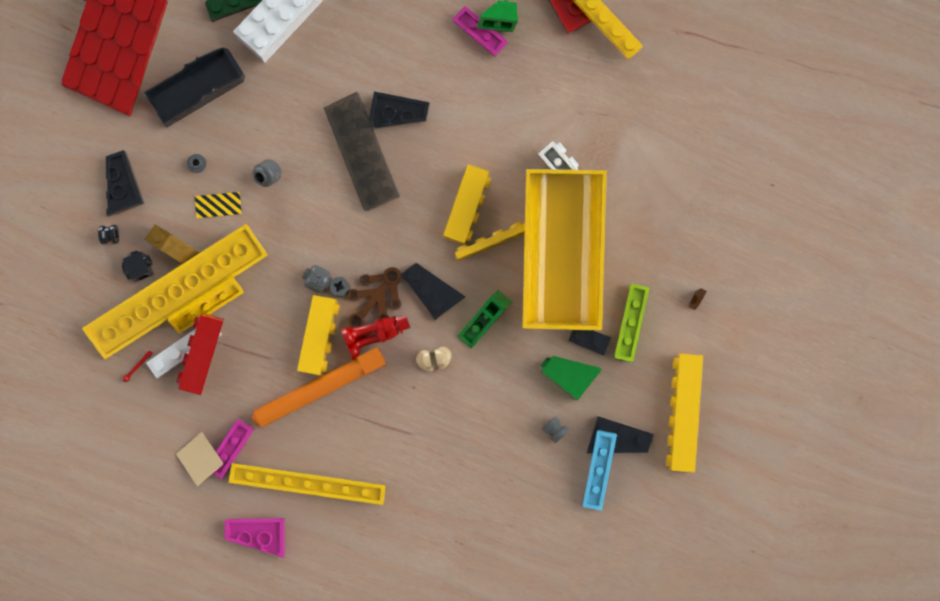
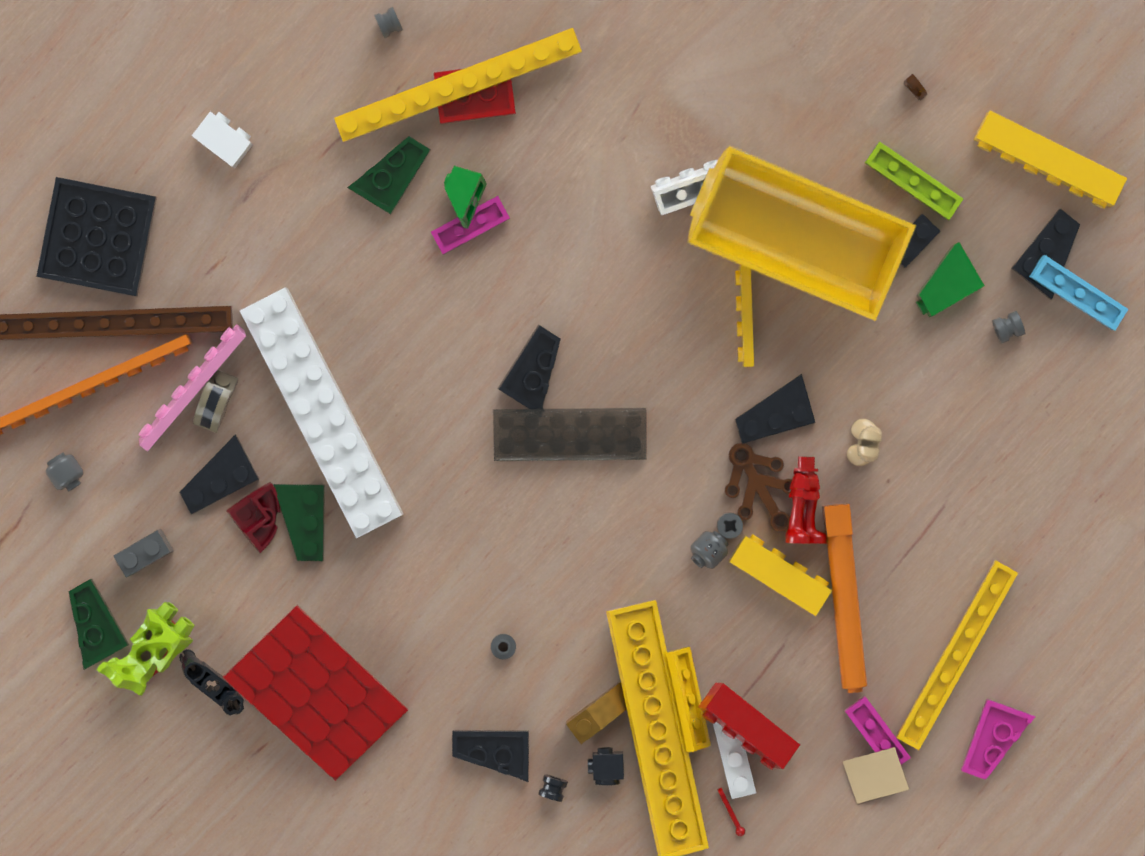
camera: 70 degrees left, 5 degrees up
(195, 85) = (403, 611): black piece -> none
(218, 205) = (565, 639): sticker -> none
(267, 173) = (552, 562): dark grey head -> none
(466, 204) = (687, 328): yellow brick -> none
(484, 318) = (838, 360): green slope -> none

